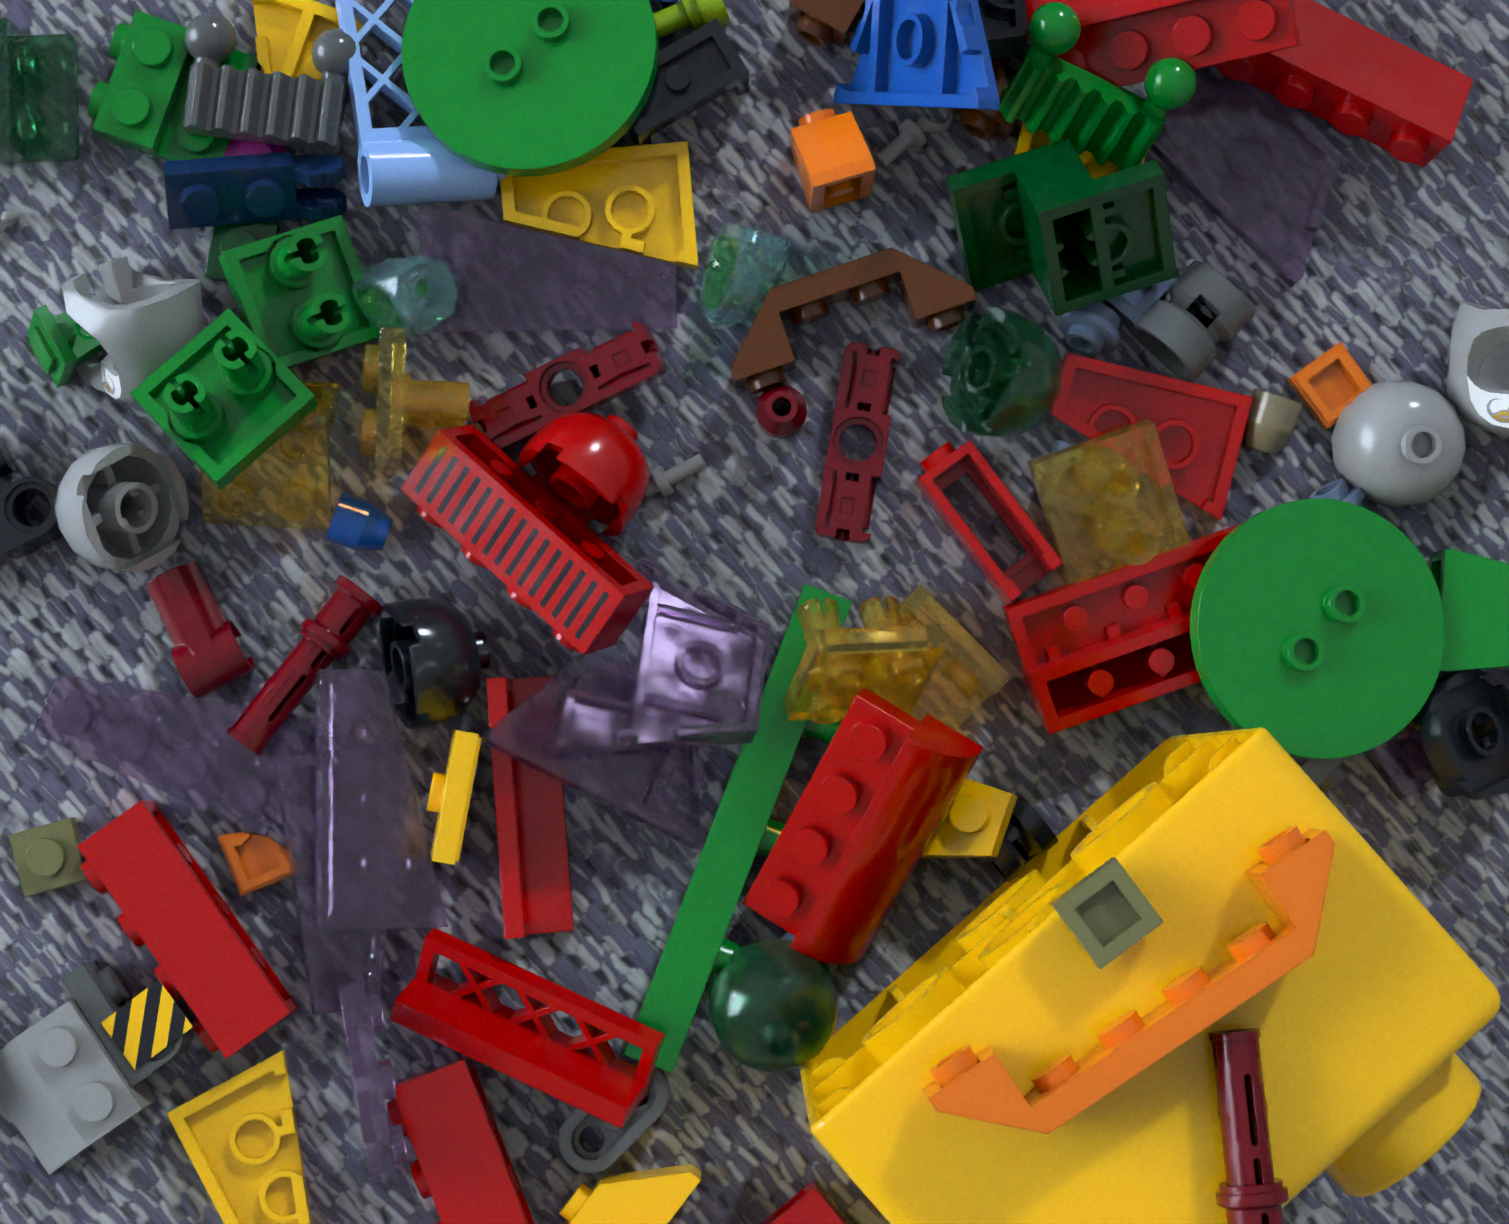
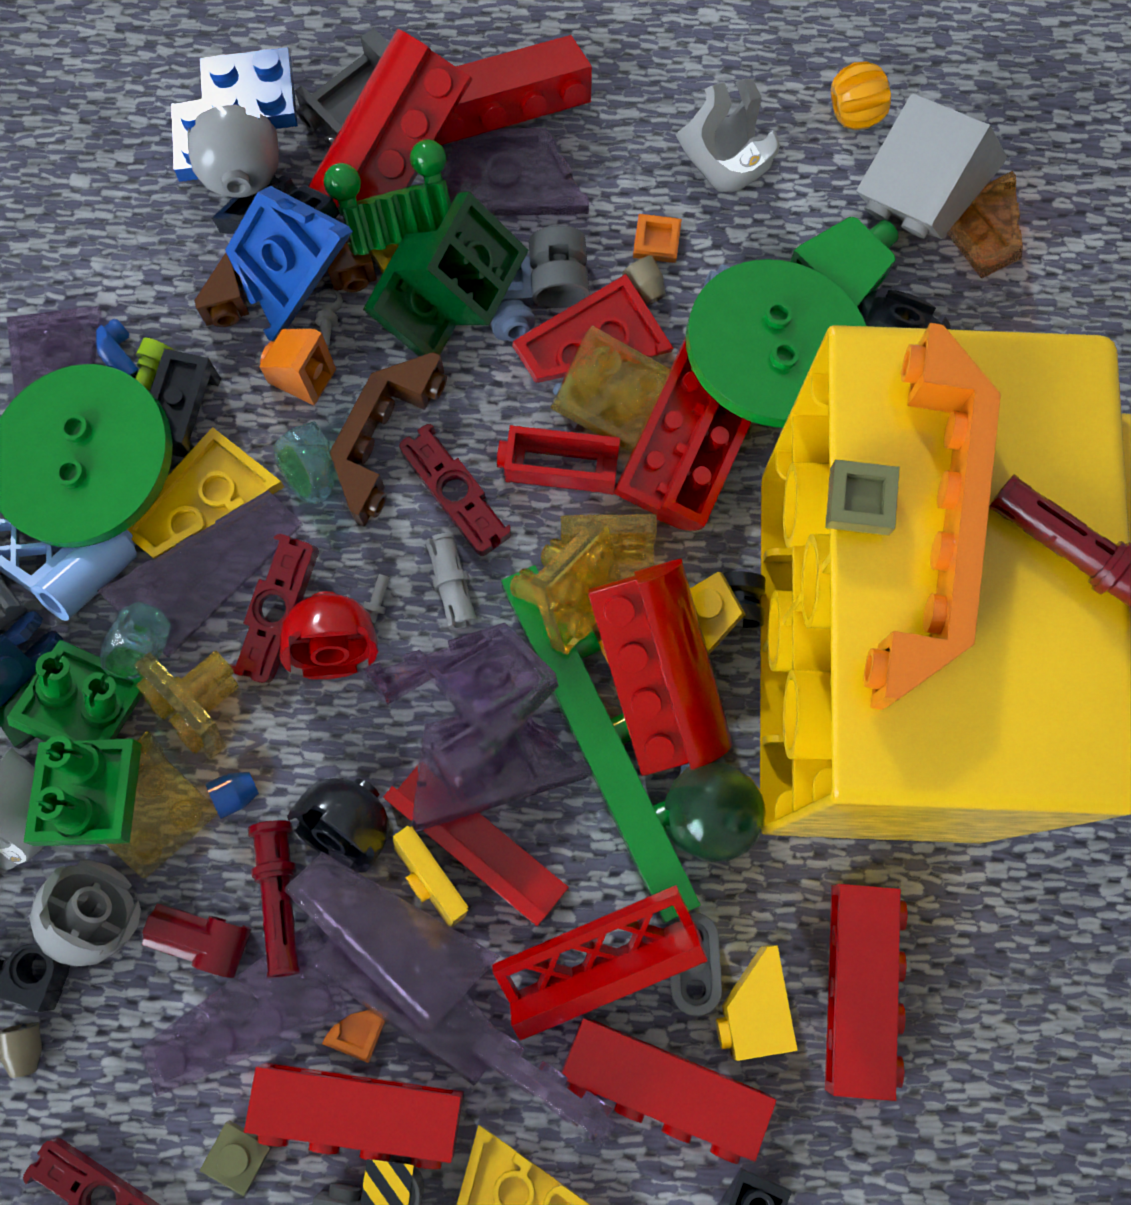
camera: 45 degrees left, 10 degrees down
(526, 539) = (329, 703): red brick -> none
(760, 532) = (451, 581): none -> light grey pin
(781, 426) = (401, 520): dark red hose -> none
(1000, 374) = (491, 380): clear green cylinder -> none
(1399, 443) = (717, 227): light grey cylinder -> none

